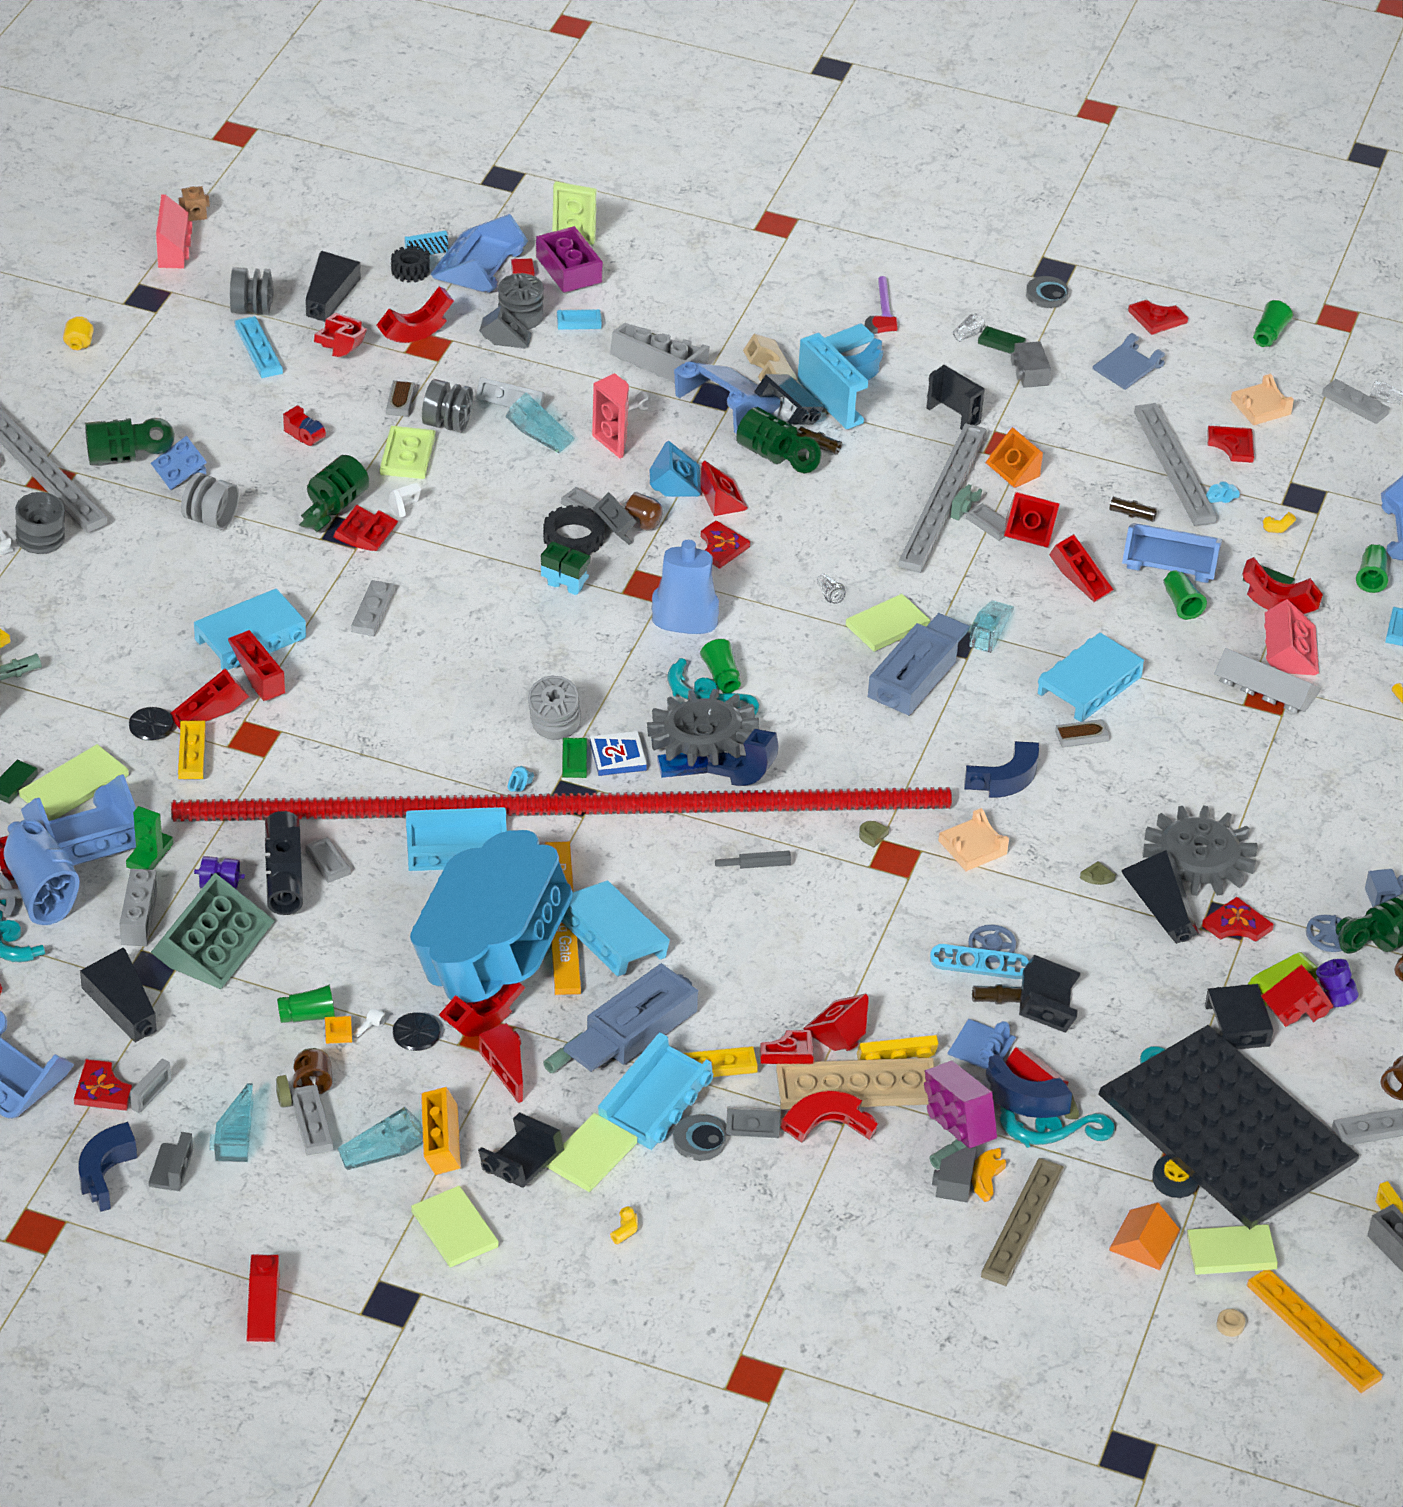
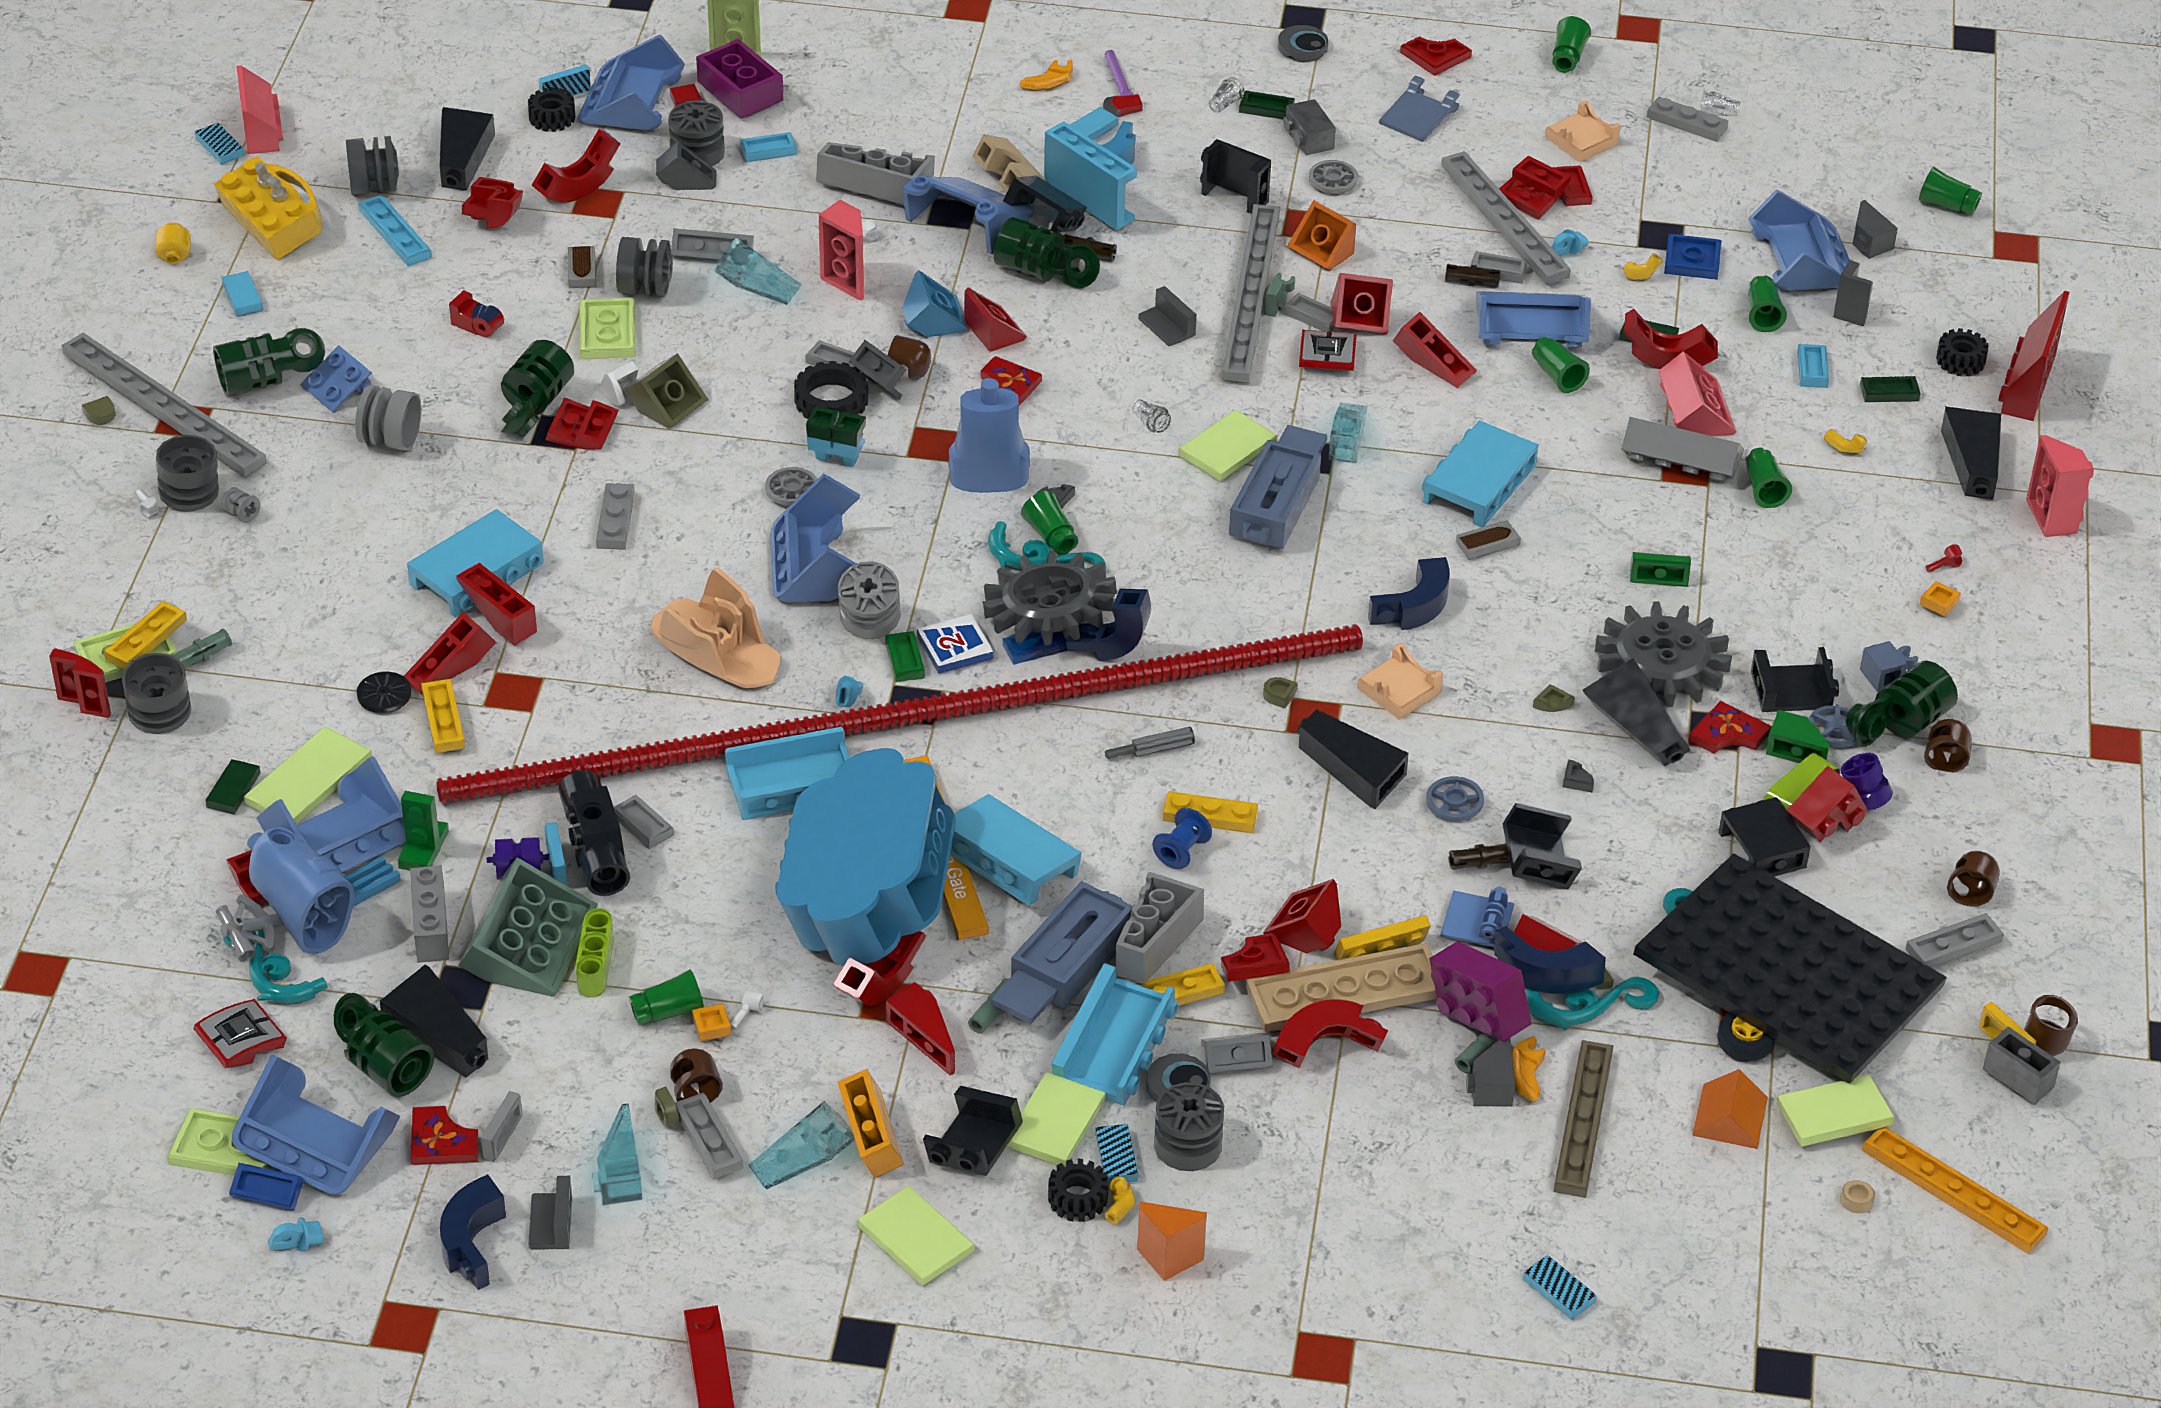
camera: 10 degrees left, 0 degrees up
(73, 1007) = (382, 1046): none -> dark green cylinder
(76, 555) = (241, 501): none -> light grey bush
(95, 870) = (364, 876): none -> dark azure tile
(123, 382) = (242, 293): none -> medium azure tile
(137, 255) = (219, 143): none -> medium azure tile
(163, 313) = (270, 205): none -> yellow piece
(194, 202) = (274, 70): medium nougat brick -> none
(250, 875) = (555, 852): none -> medium azure tile
(260, 959) = (594, 952): none -> lime beam
(416, 1031) = (805, 1009): black wheel -> none
(427, 717) = (719, 634): none -> light nougat piece
(440, 512) = (667, 392): none -> olive slope
(516, 650) = (800, 554): none -> medium blue windscreen
(521, 604) = (790, 486): none -> light grey wheel
(593, 1223) = (1078, 1204): none -> black tyre
(633, 1187) = (1116, 1152): none -> tile
(655, 1262) = (1171, 1237): none -> orange slope
(694, 1175) = (1189, 1126): none -> dark grey wheel
(714, 1009) = (1157, 926): none -> light grey wedge
(738, 643) = (1062, 493): none -> dark grey tile
(765, 934) = (1174, 847): none -> blue hose
(787, 923) = (1219, 812): none -> yellow plate
(831, 292) = (1053, 77): none -> light orange piece
(868, 510) = (1169, 318): none -> dark grey panel
(916, 896) = (1353, 757): none -> black slope
(962, 1354) = (1559, 1287): none -> medium azure tile
(980, 957) = (1448, 826): medium azure beam -> none
(993, 554) = (1327, 350): none -> slope
(1040, 409) = (1333, 177): none -> light grey wheel
(1098, 941) = (1577, 777): none -> dark grey tile
(1166, 507) = (1511, 268): none -> light grey tile
(1206, 441) = (1534, 186): none -> red slope
(1218, 779) = (1660, 569): none -> green brick
(1288, 937) = (1795, 738): none -> green slope
(1302, 893) = (1794, 685): none -> black panel
(1325, 519) = (1692, 256): none -> blue tile
(1331, 720) = (1767, 480): none -> green plant

